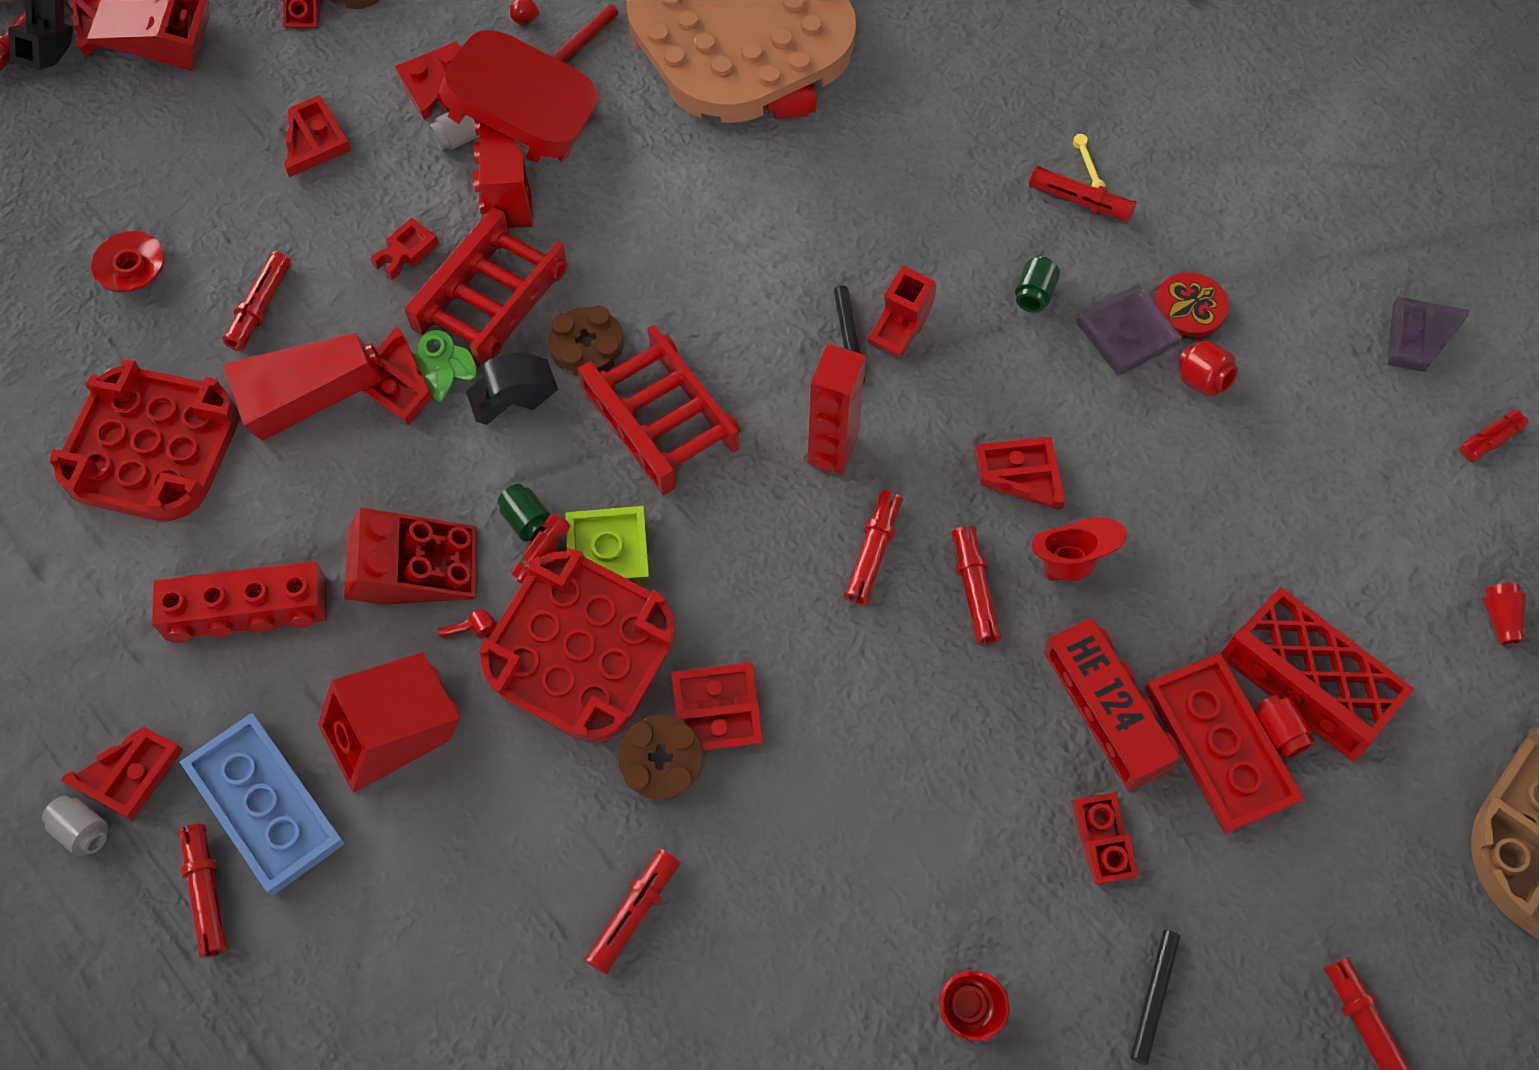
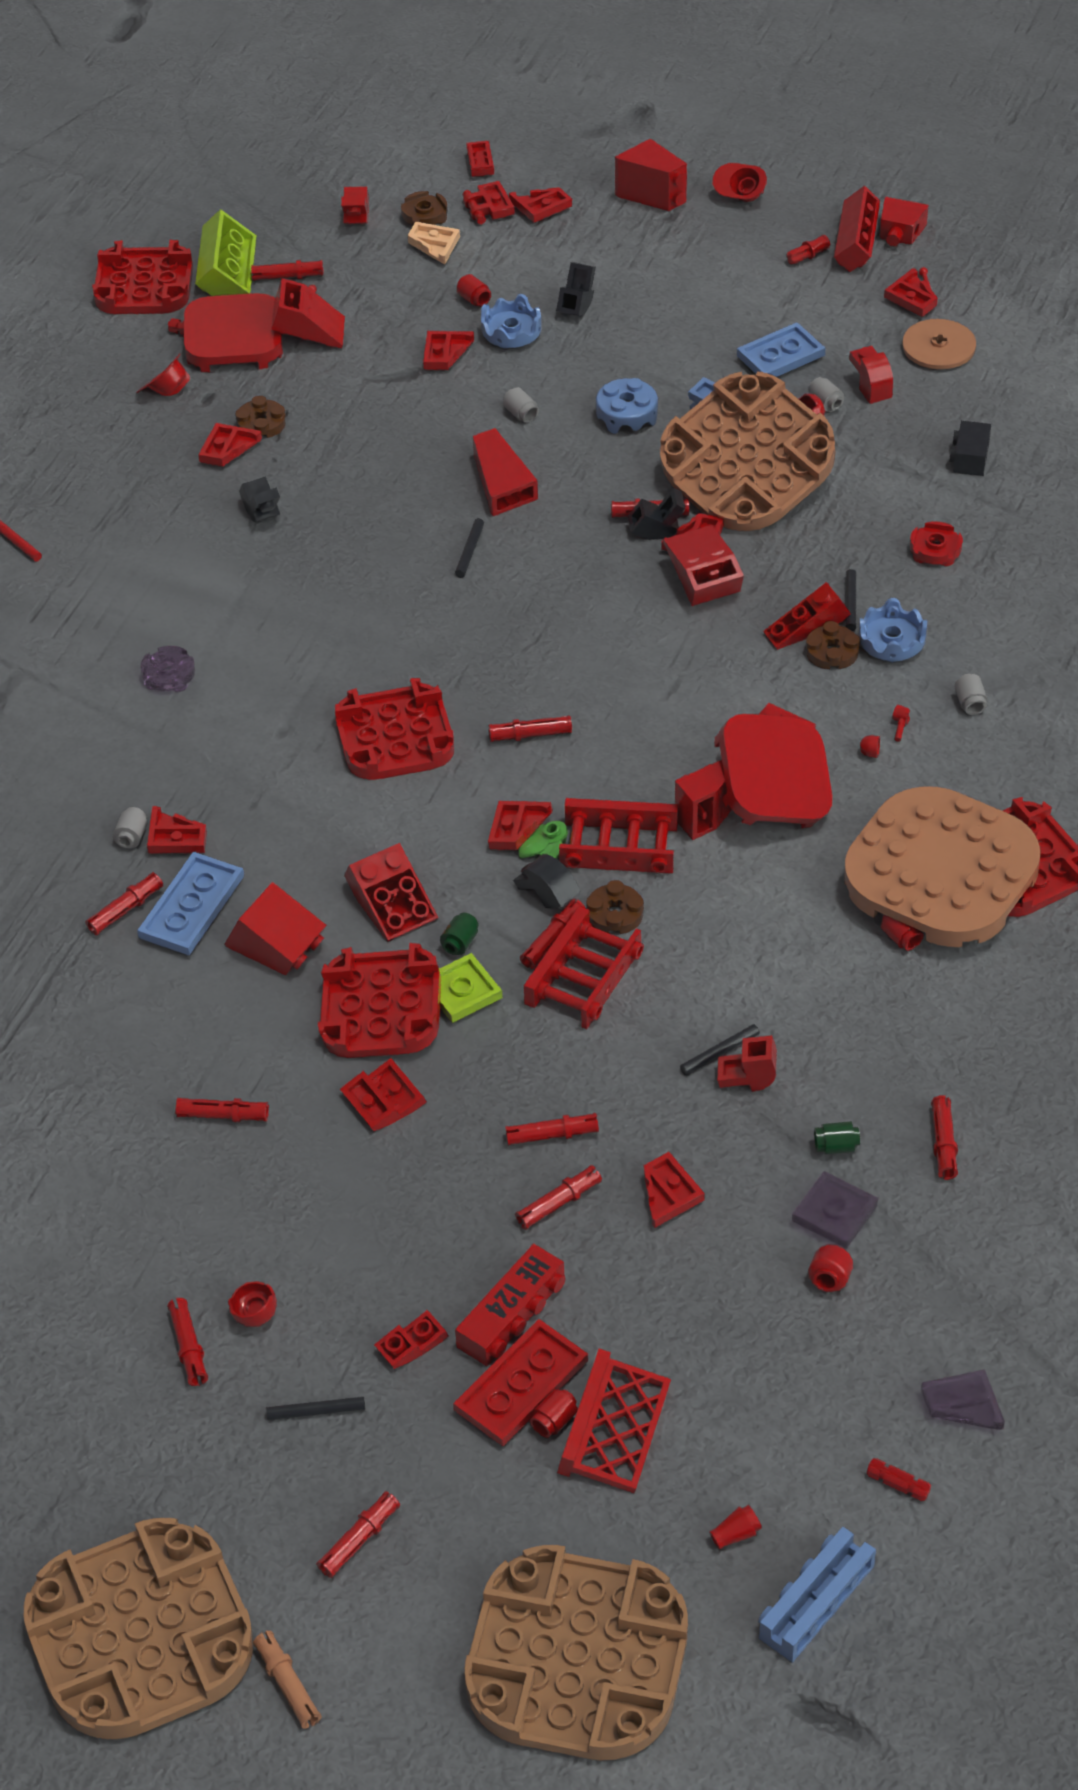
camera: 65 degrees right, 15 degrees down
(127, 261) = (514, 652): red dish -> none
(239, 601) = (312, 827): red brick -> none
(300, 381) = (476, 775): red slope -> none
(312, 136) = (679, 690): red wing -> none
(406, 245) = (623, 781): red plate -> none
(479, 621) = (367, 947): red hand -> none
(542, 545) = (443, 951): red axle -> none
(579, 404) = (544, 941): none -> red pin
(586, 34) = (864, 789): red bar -> none
(642, 773) = (319, 1068): reddish brown plate -> none
(835, 408) = (619, 1041): red brick -> none
(1074, 549) = (616, 1237): red piece -> none
(1080, 142) = (1001, 1122): light yellow hinge -> none
(1192, 304) = (888, 1243): red tile -> none

